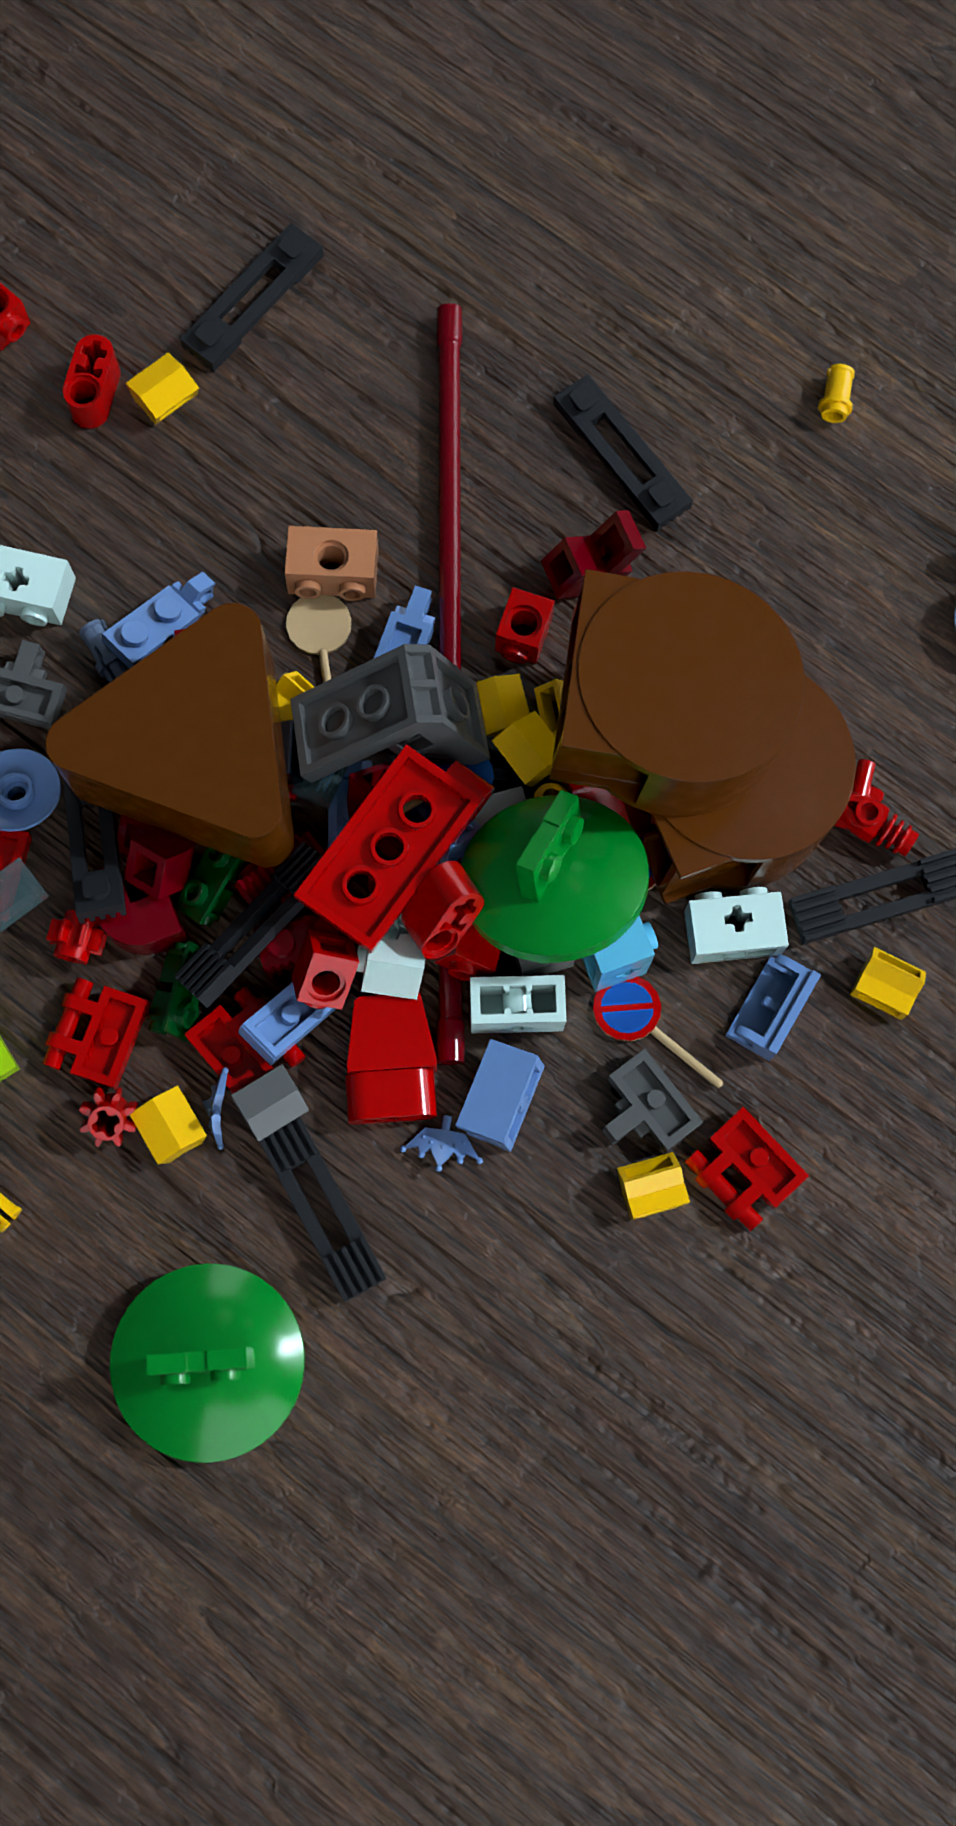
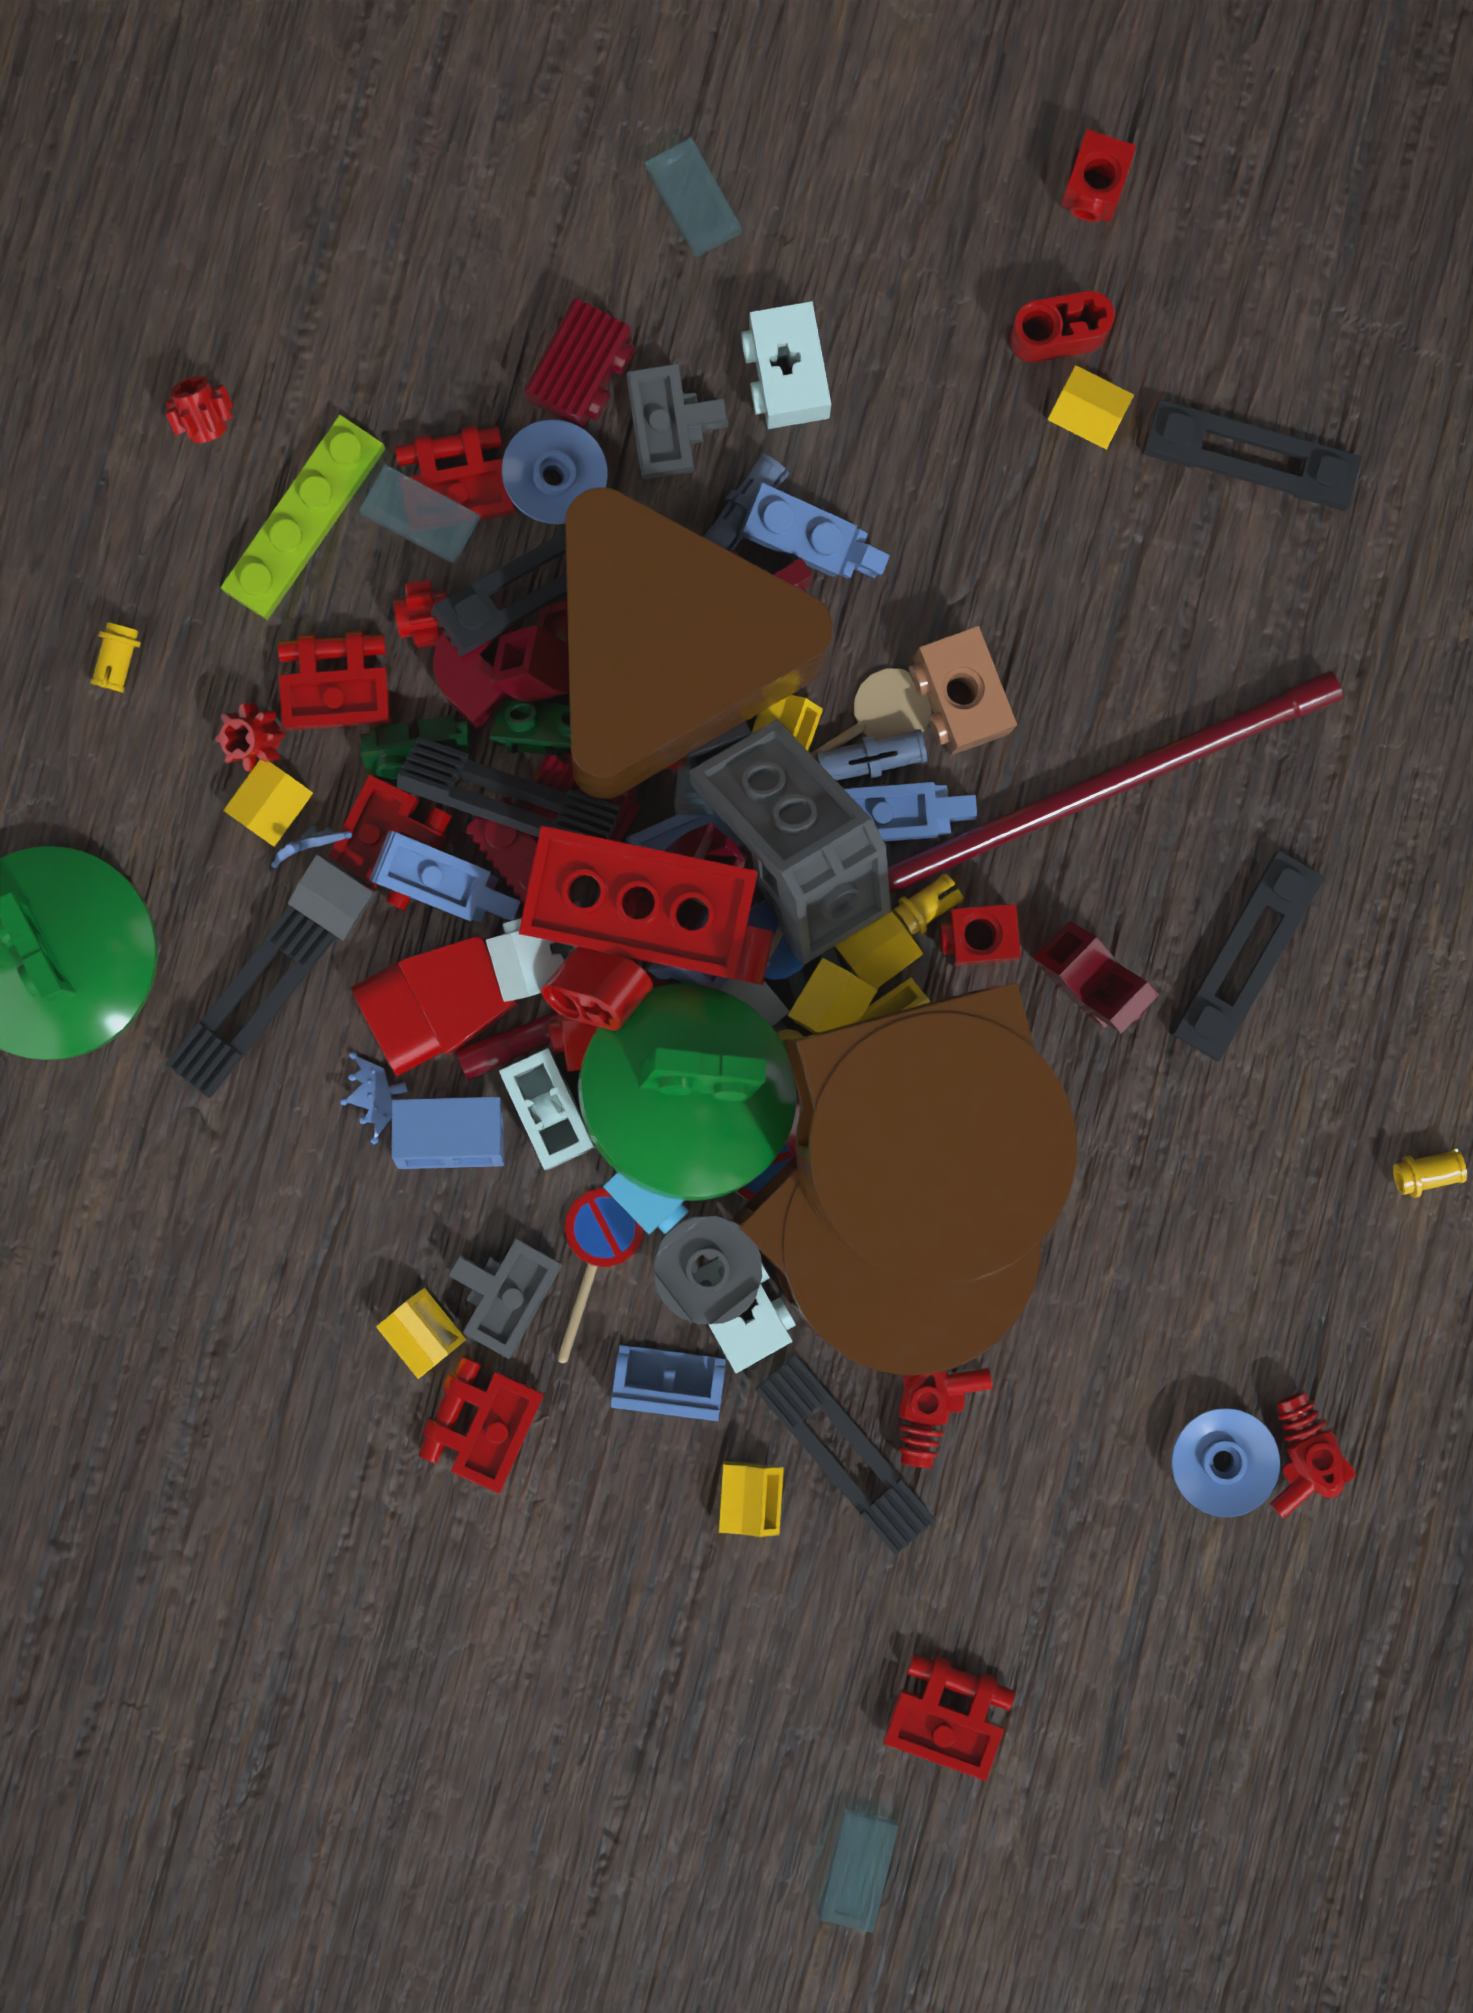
camera: 65 degrees right, 10 degrees up
(325, 953) = (487, 892): red brick -> none
(354, 624) = (907, 749): none -> sand blue pin
(482, 655) = (925, 905): none -> yellow pin
(714, 905) = (704, 1301): none -> dark grey plate

